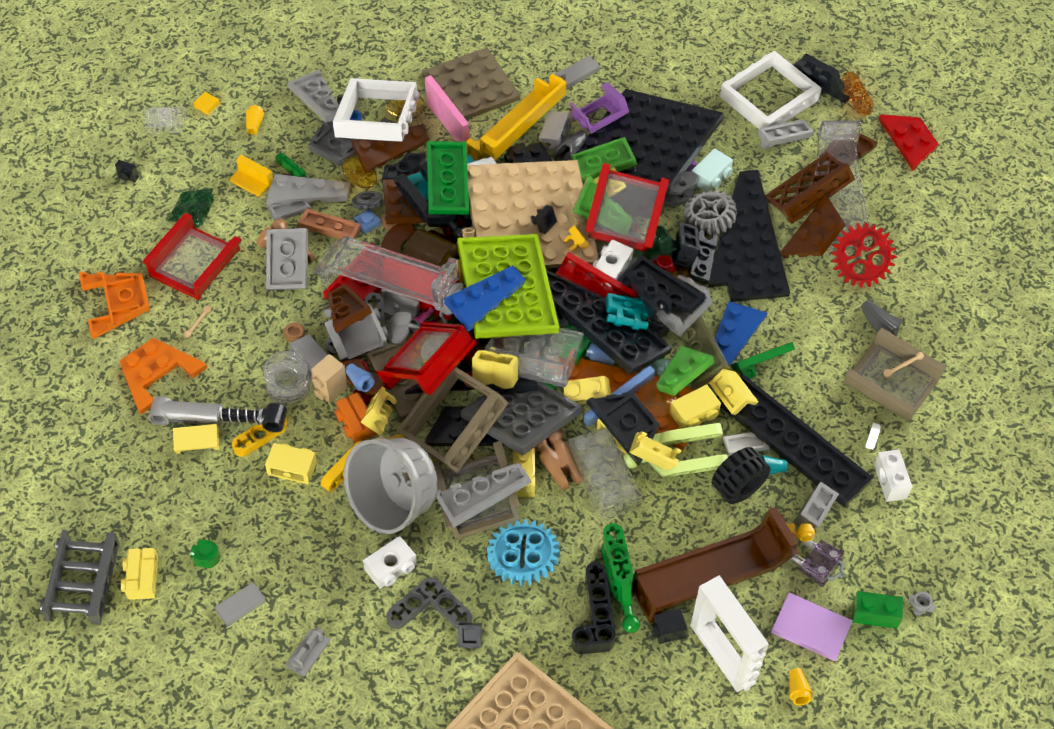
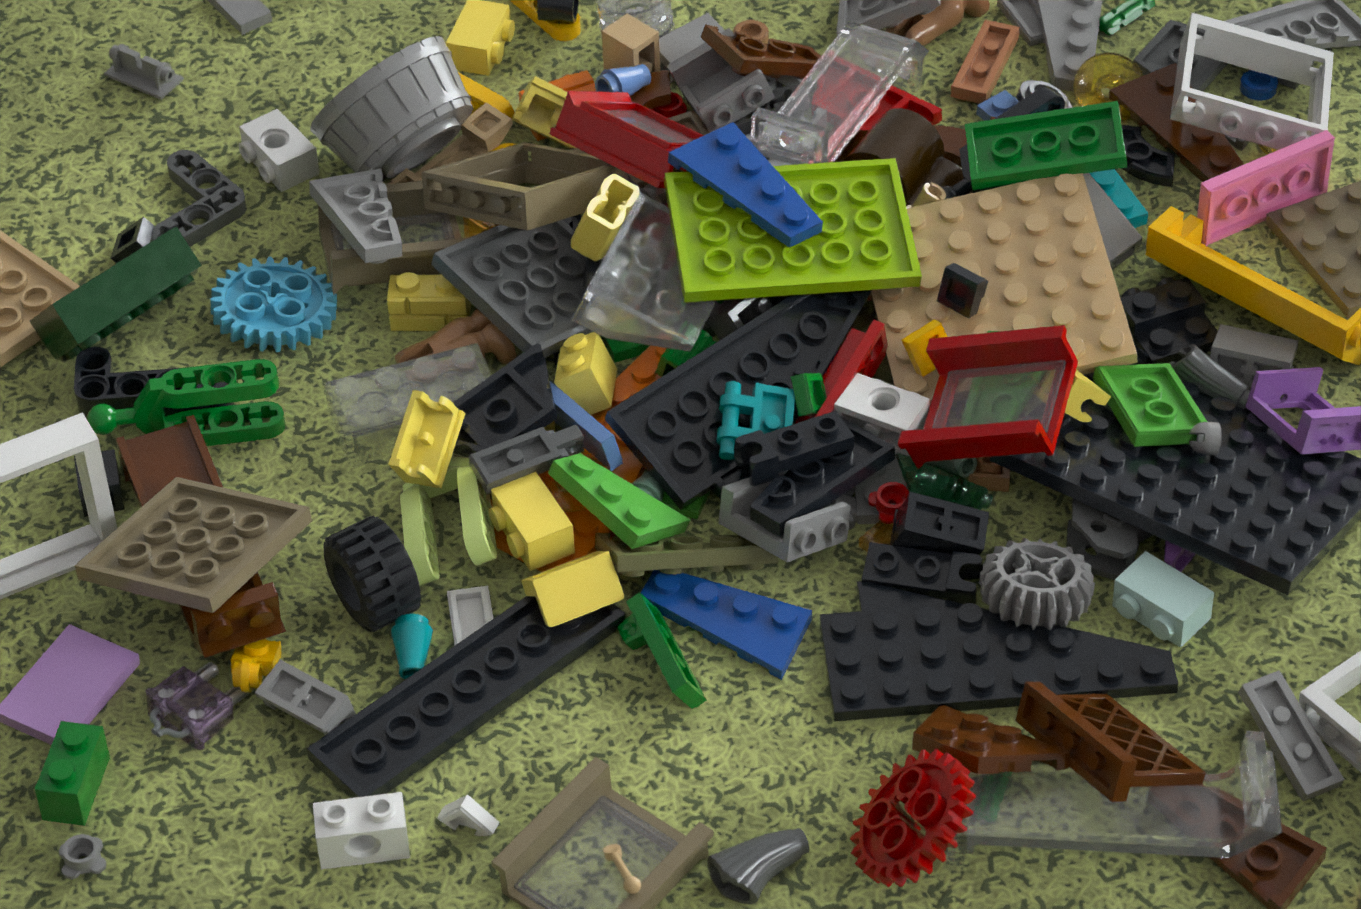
camera: 95 degrees right, 10 degrees down
(530, 628) = (117, 295): none -> dark green brick
(604, 289) = (808, 393): none -> green tile
(631, 136) = (1208, 438): none -> light grey hinge
(663, 406) = (524, 455): none -> dark grey hinge
(744, 549) = (194, 544): none -> dark tan plate

